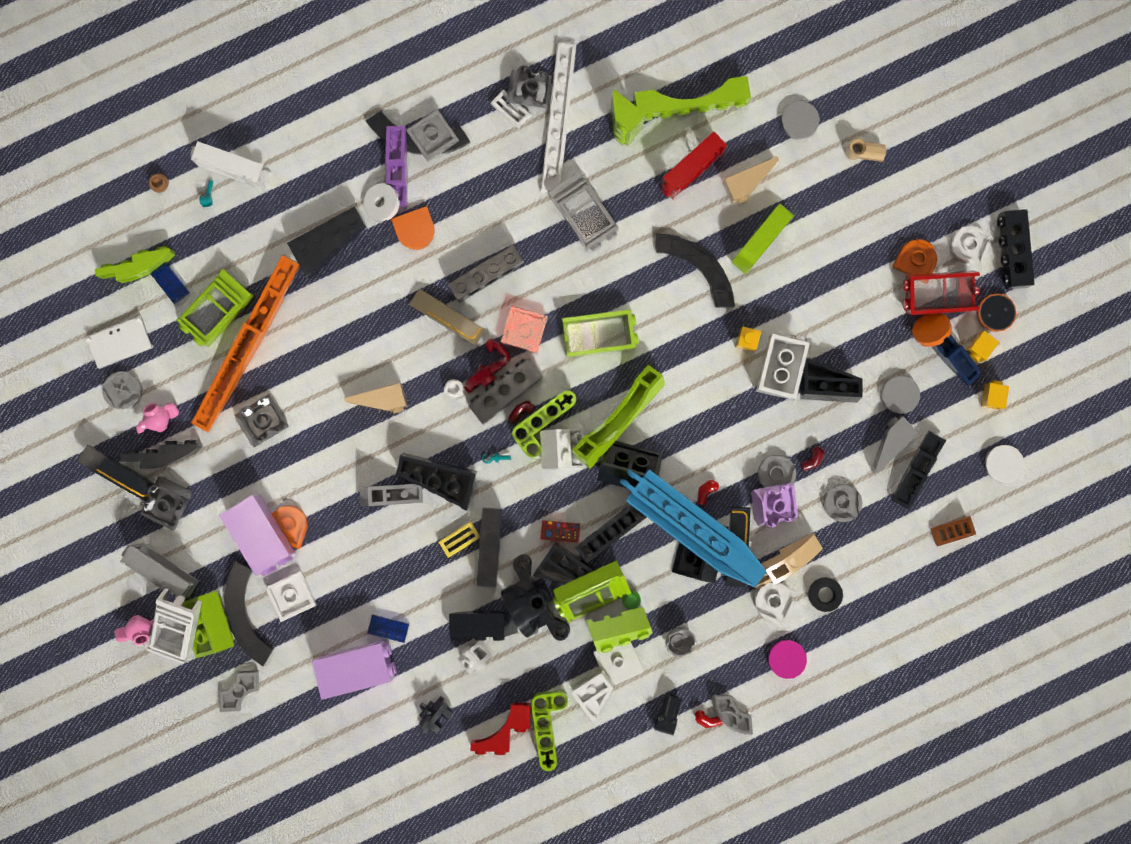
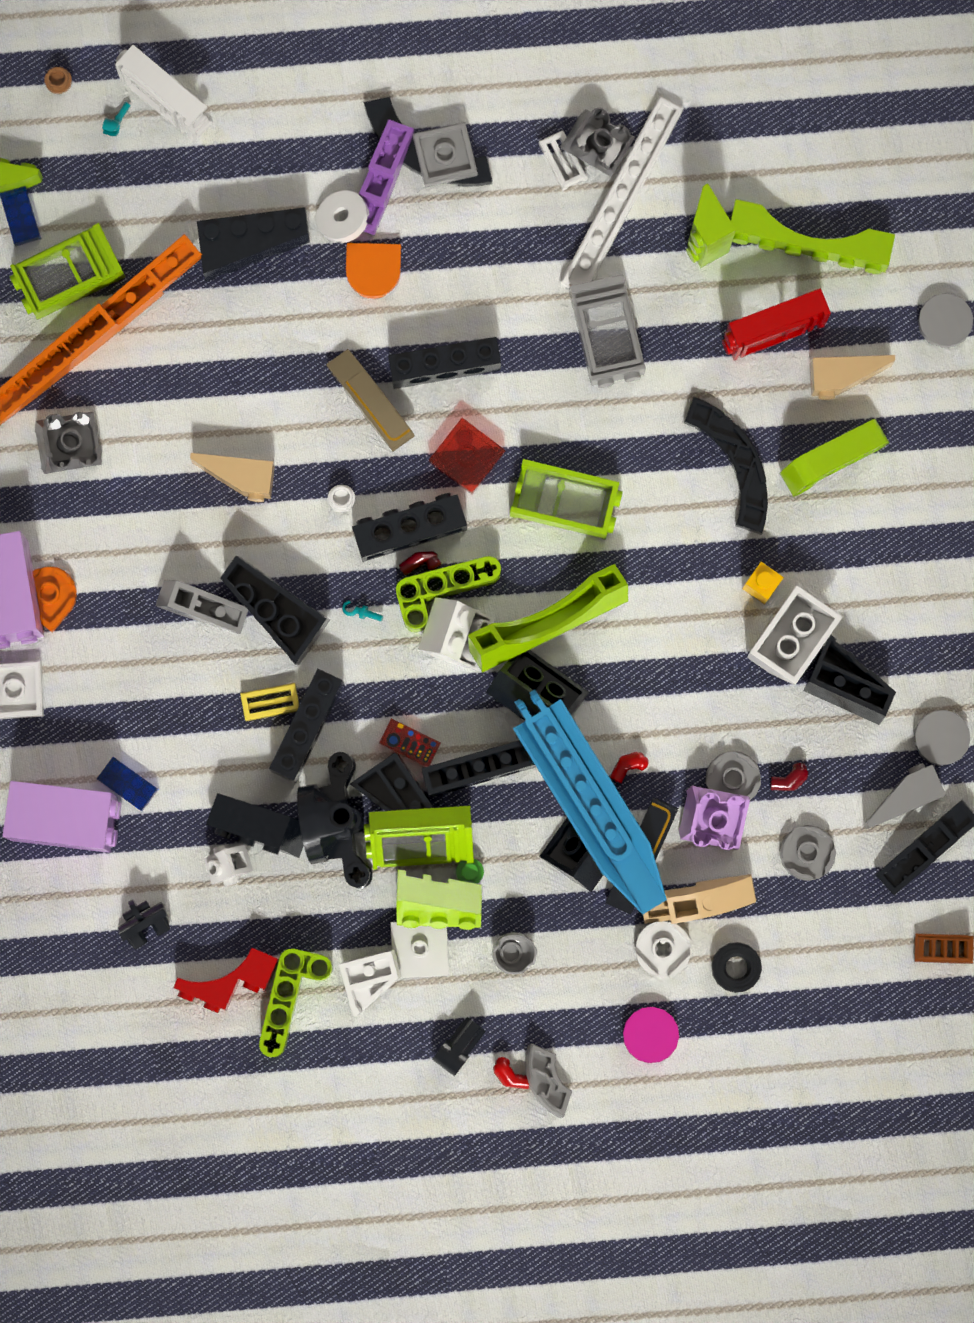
camera: 20 degrees right, 5 degrees down
(485, 375) = (391, 495): dark red animal -> none

